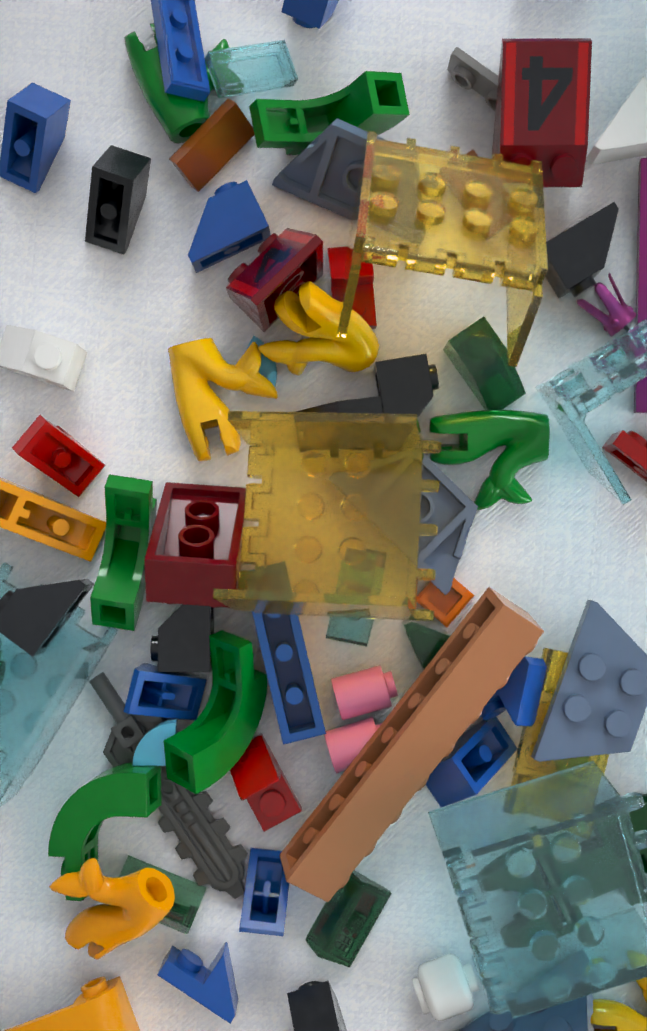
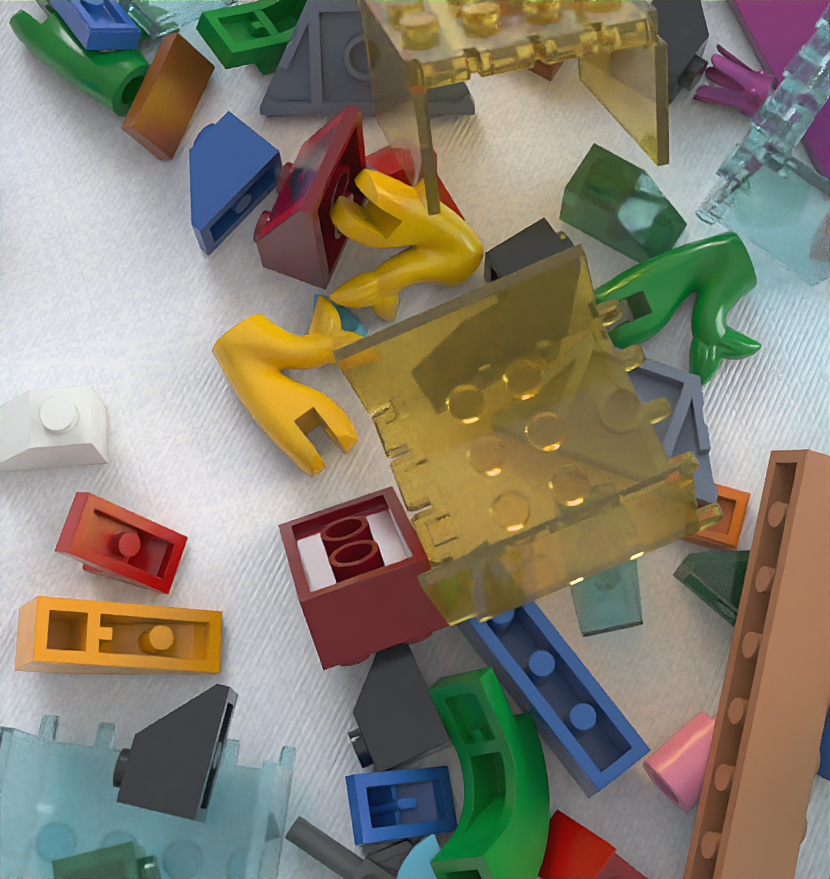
camera: 25 degrees left, 15 degrees down
(116, 198) = (71, 204): black slope -> none
(121, 576) = (263, 629): green arch -> none
(363, 692) = (670, 683): bright pink brick -> none

